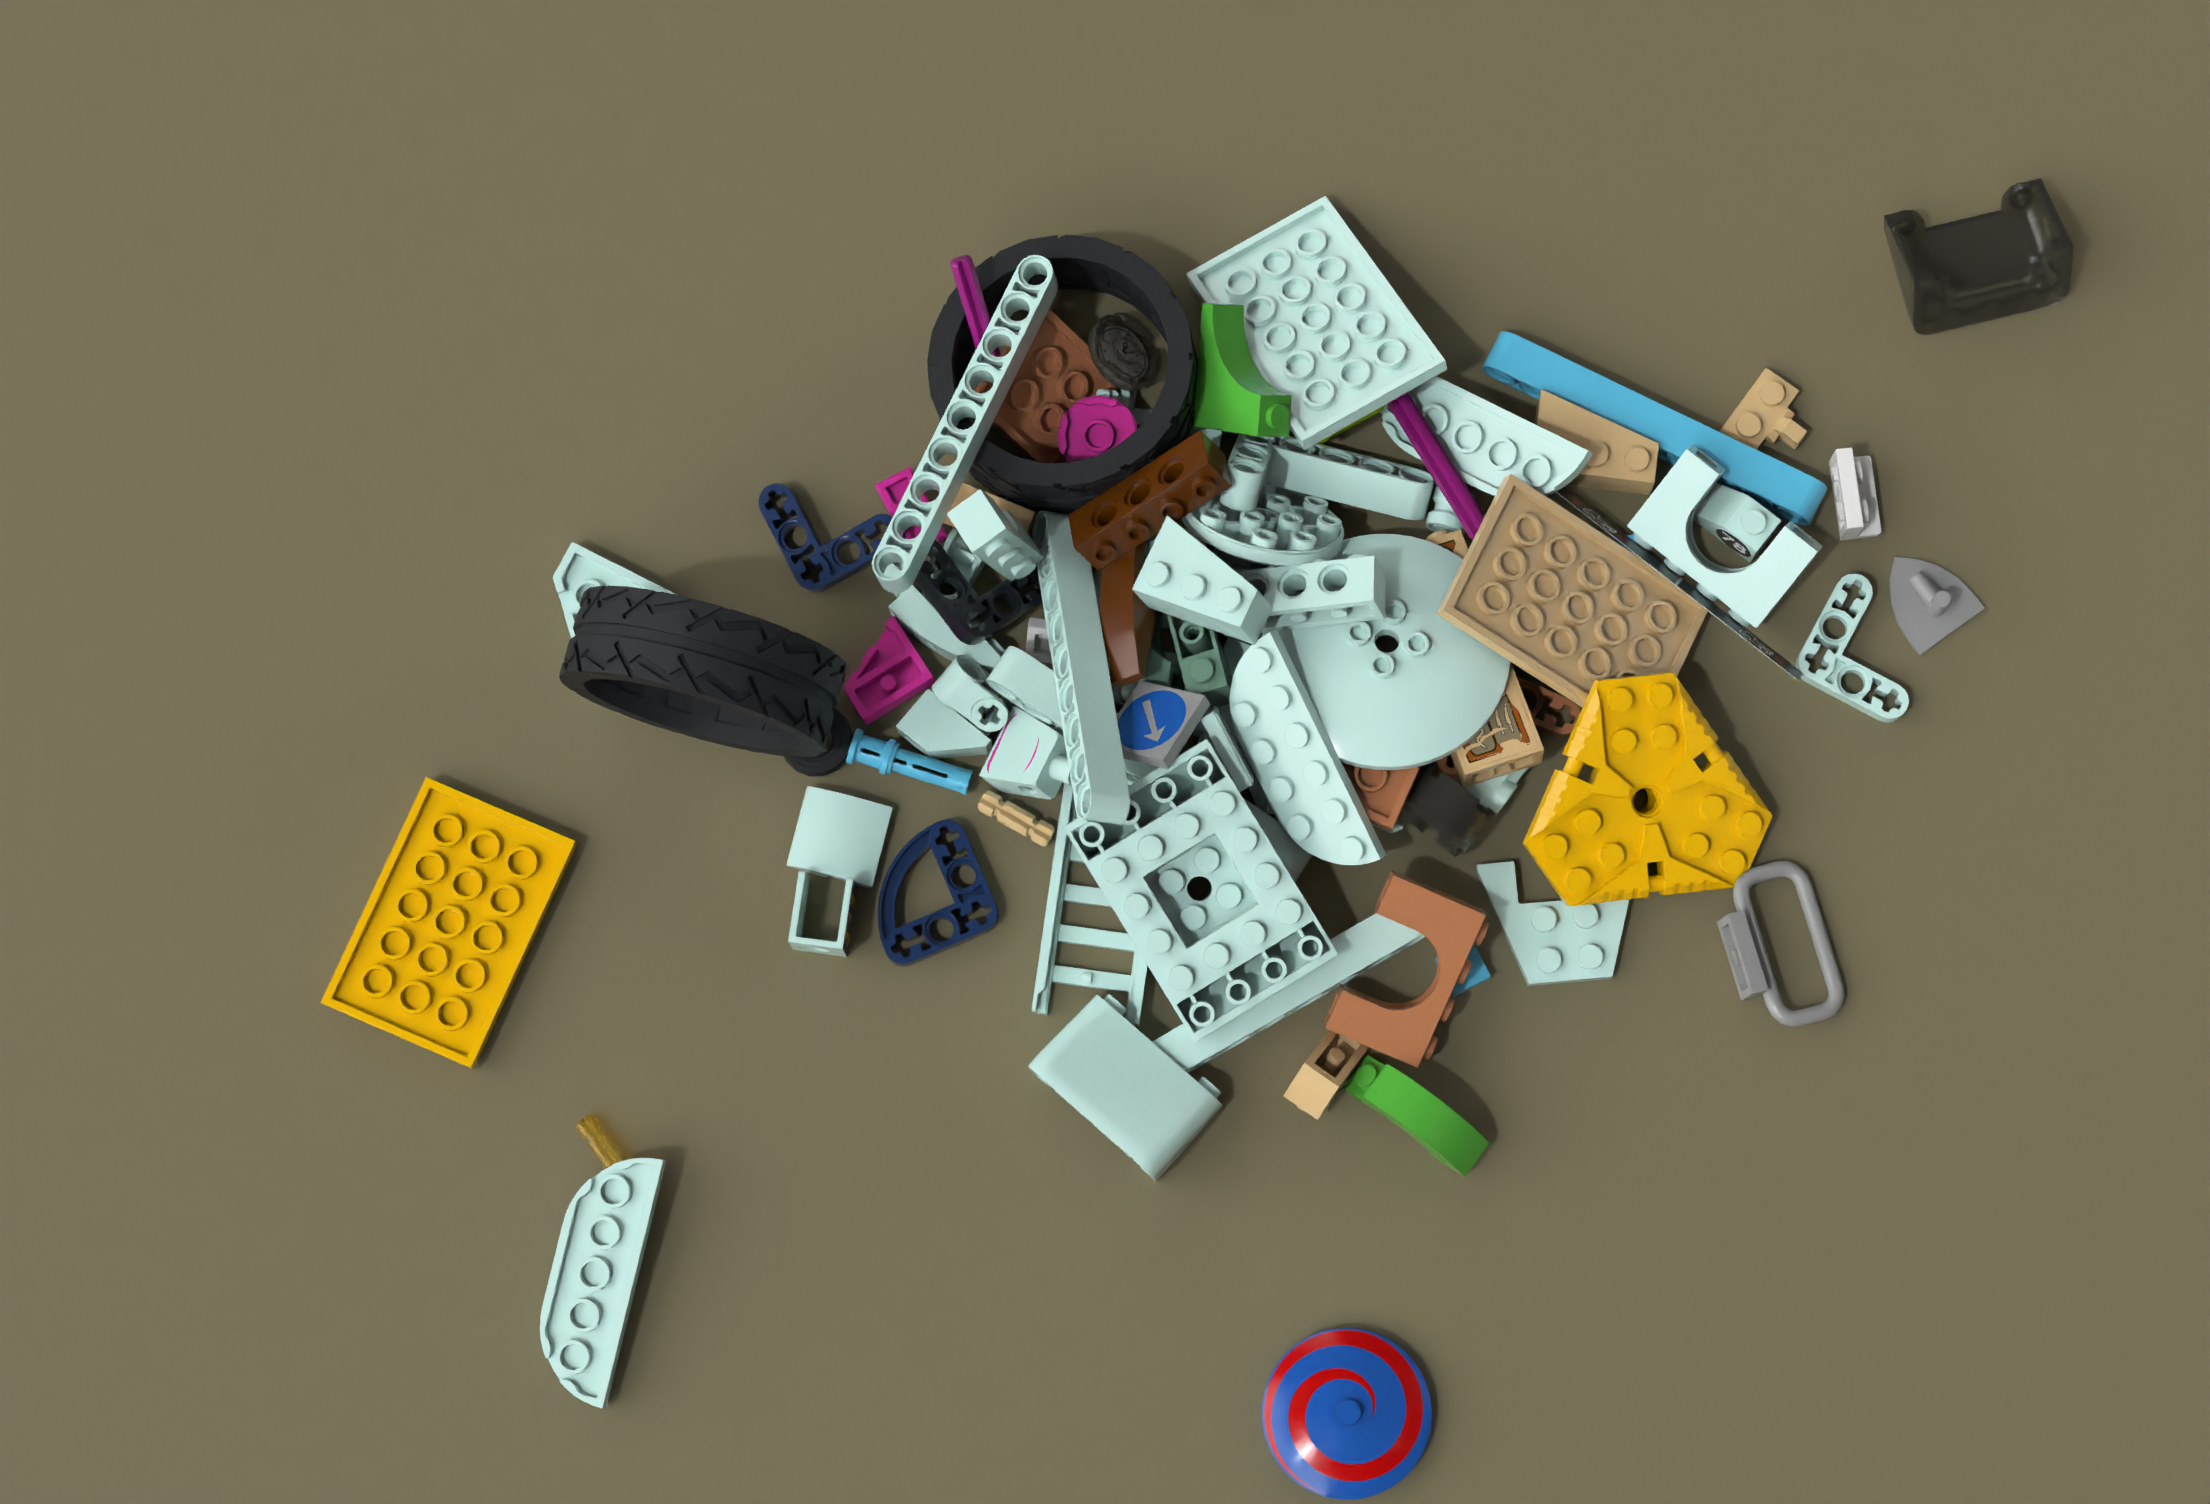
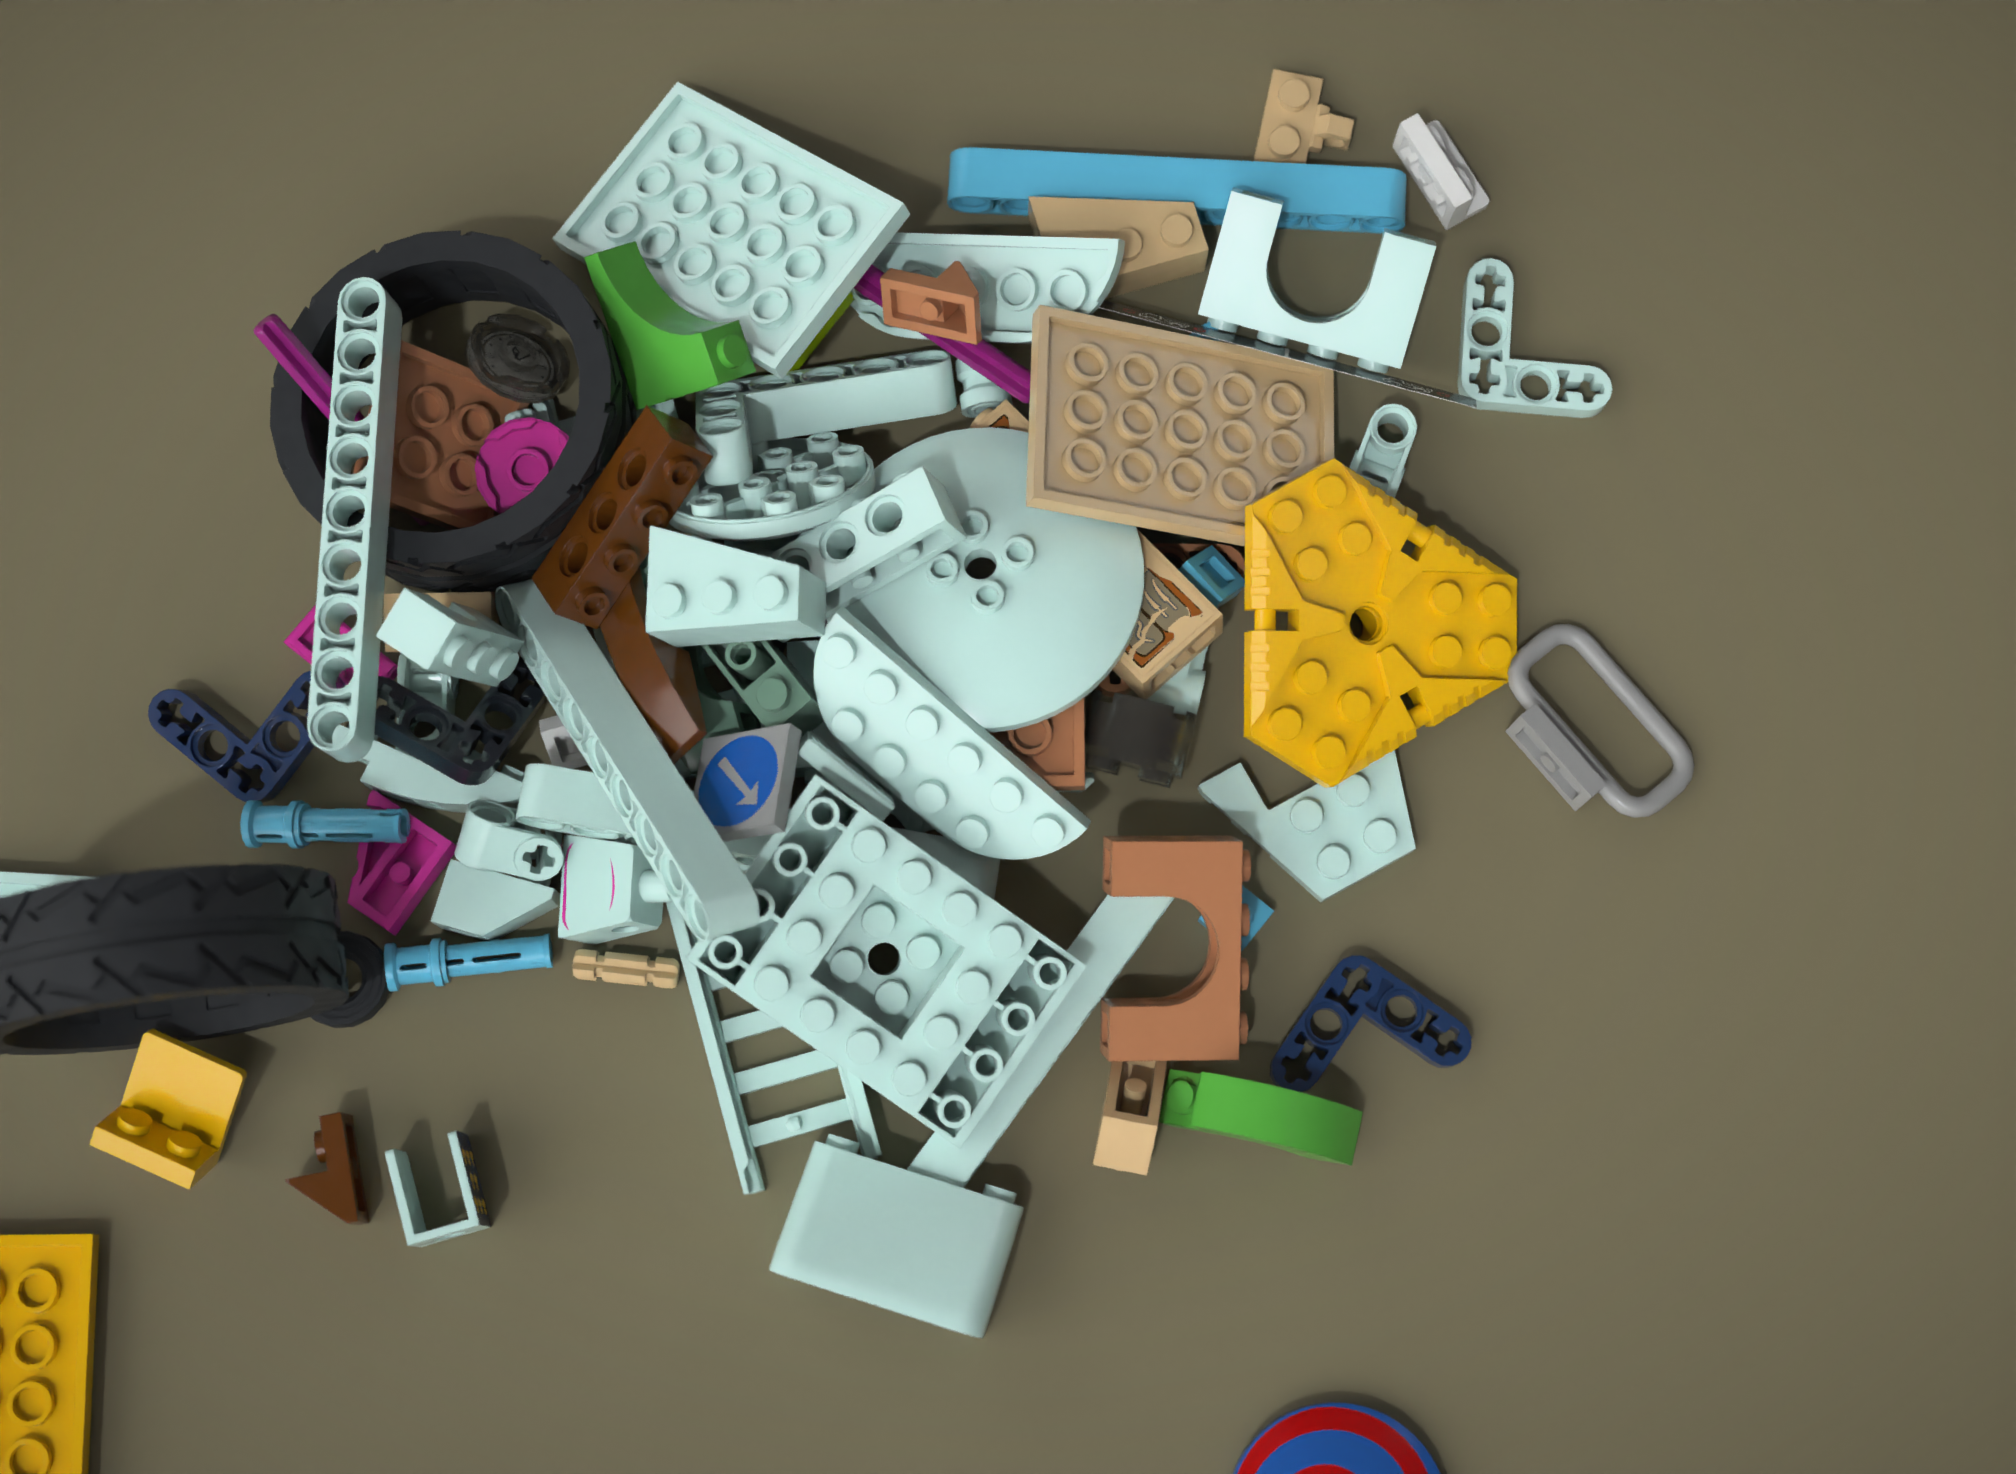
camera: 30 degrees left, 0 degrees up
(665, 779) = (173, 1110): none -> yellow bracket
(757, 881) = (341, 1186): none -> reddish brown slope
(833, 619) = (301, 824): none -> medium azure pin
(839, 836) = (419, 1084): light aqua slope -> none
(963, 898) = (603, 1094): dark blue beam -> none
(1434, 441) = (933, 305): none -> nougat slope
(1530, 1074) = (1371, 1007): none -> dark blue beam
(1551, 720) = (1213, 576): none -> medium azure plate
(1710, 690) = (1383, 461): none -> light aqua piece
(1736, 520) = (1320, 256): light aqua slope -> none
(1928, 602) = (1577, 258): light grey shield -> none

